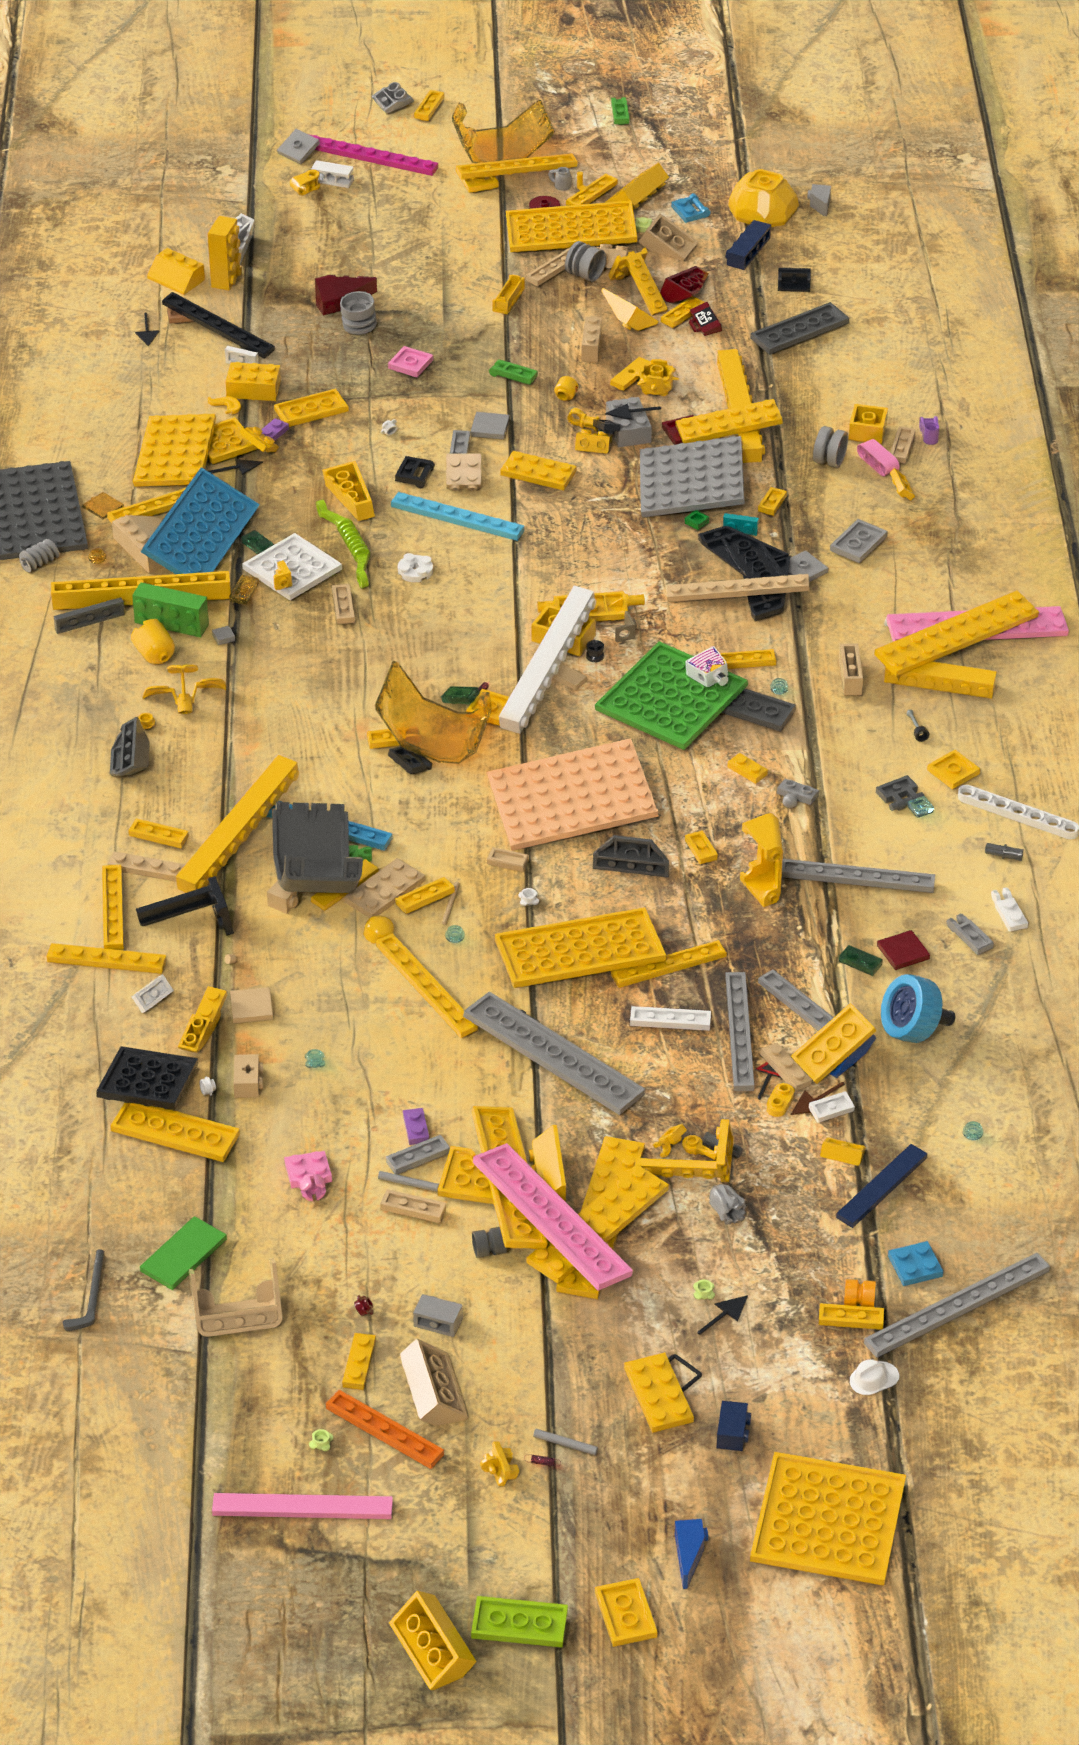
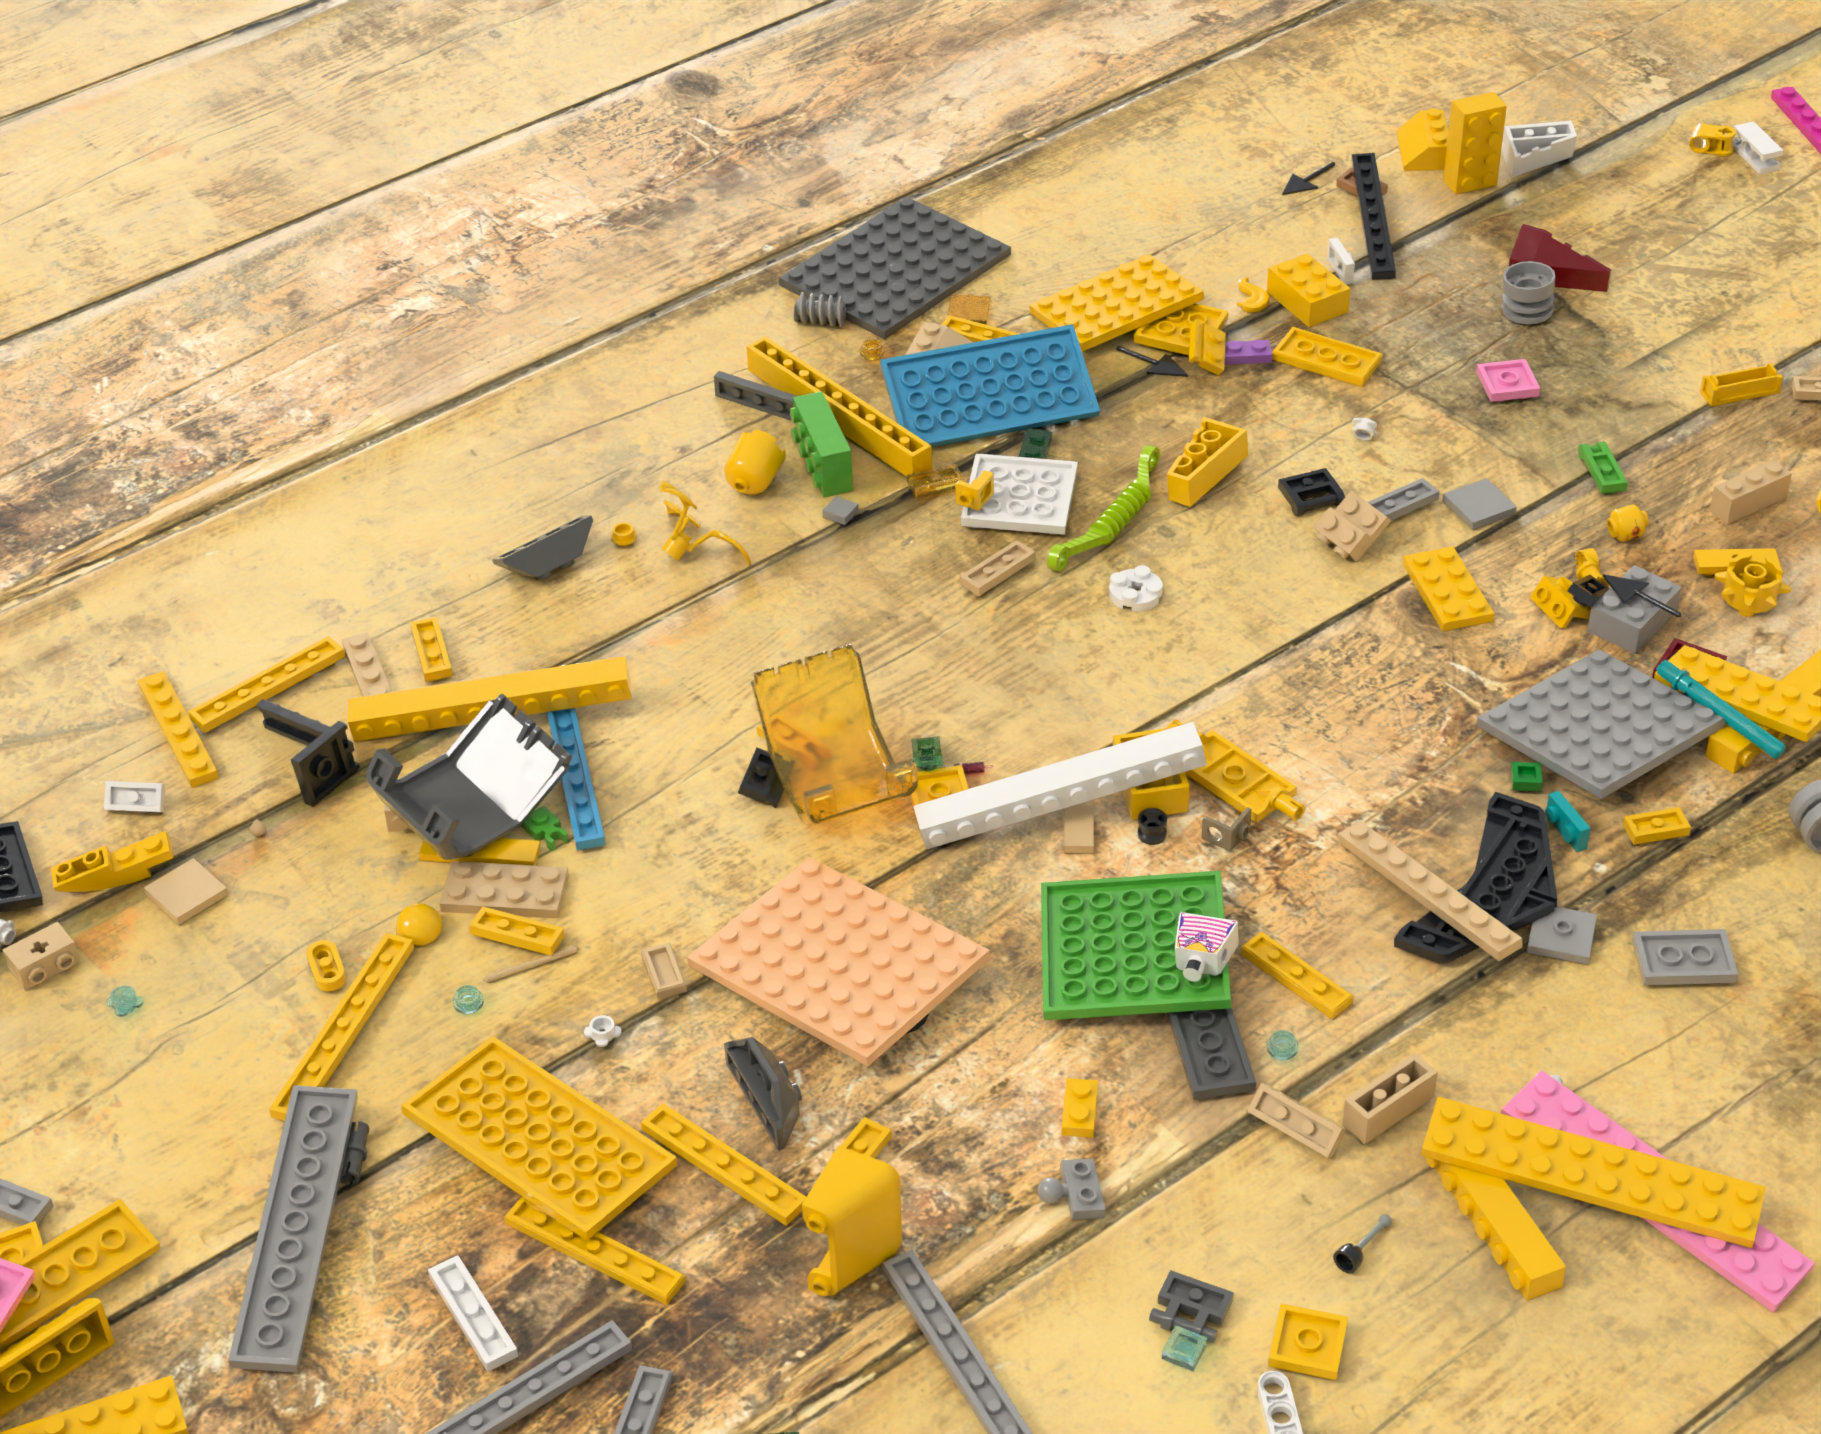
camera: 55 degrees right, 0 degrees up
(298, 146) = (1766, 100): light grey plate -> none
(373, 973) = (326, 965): none -> yellow plate
(415, 1125) = (64, 1167): medium lavender plate -> none
(457, 516) = (1276, 572): medium azure plate -> none
(663, 895) = (724, 1164): none -> yellow plate
(747, 434) = (1682, 681): none -> teal axle
(829, 705) = (1296, 1120): none -> tan plate

